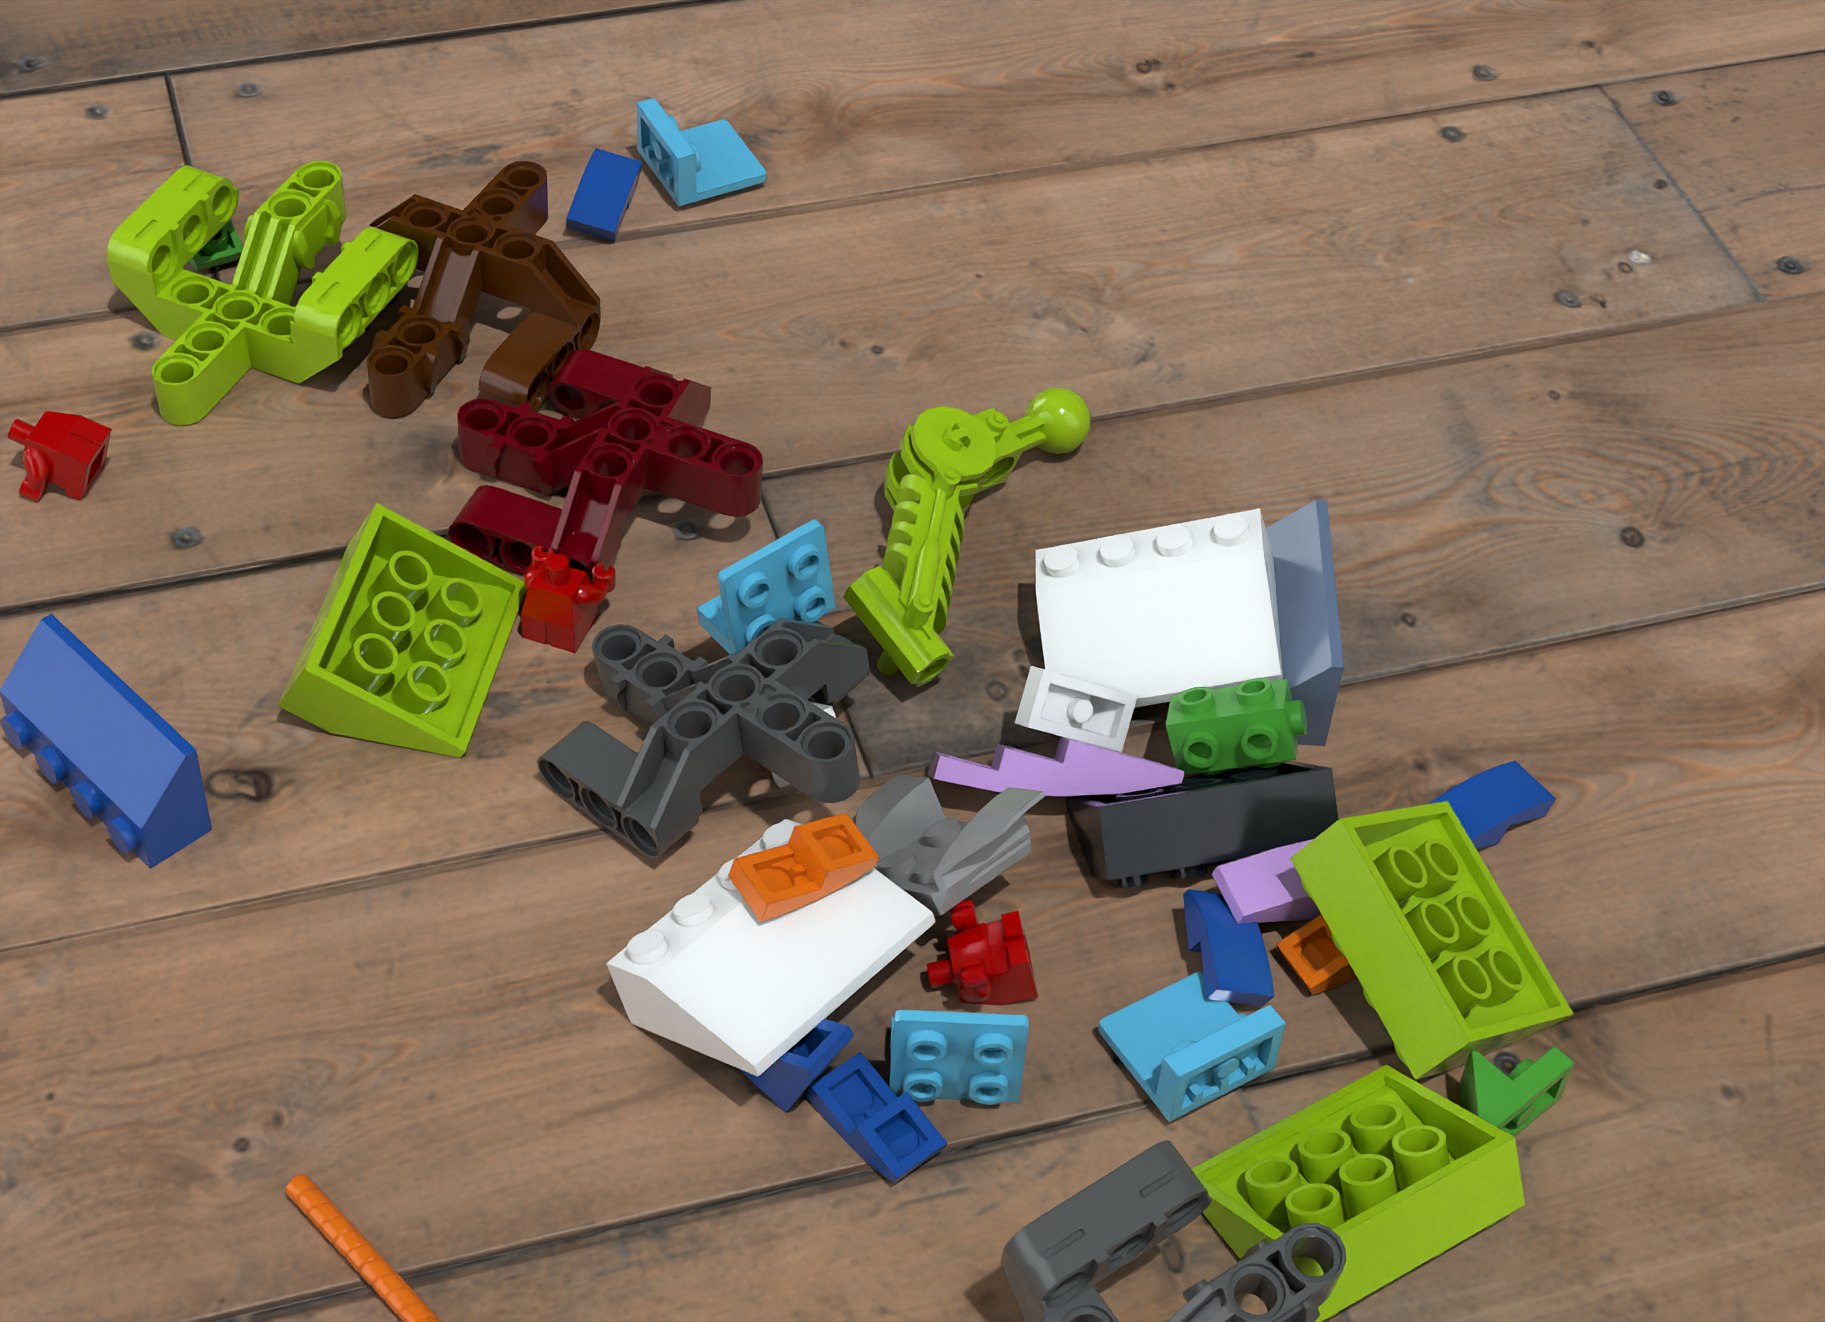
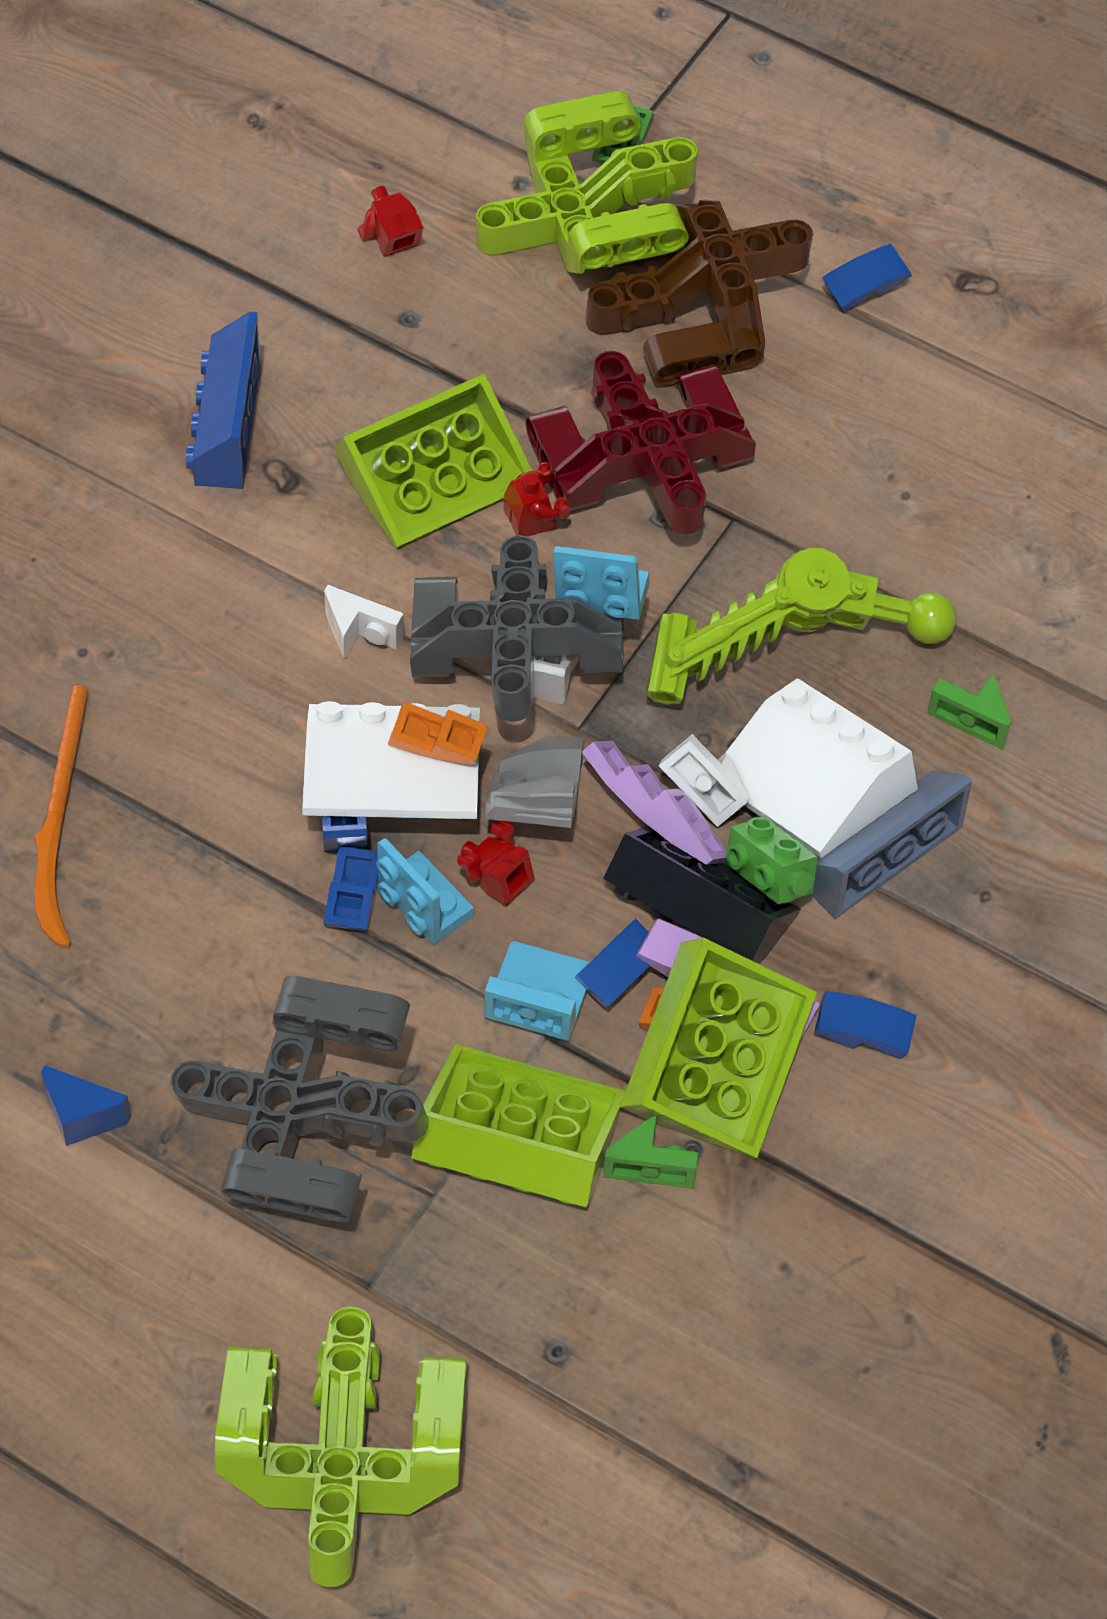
camera: 50 degrees right, 10 degrees up
(518, 850) = (356, 616): none -> white slope
(695, 160) = (951, 294): medium azure bracket -> none
(1199, 469) = (979, 715): none -> bright green slope

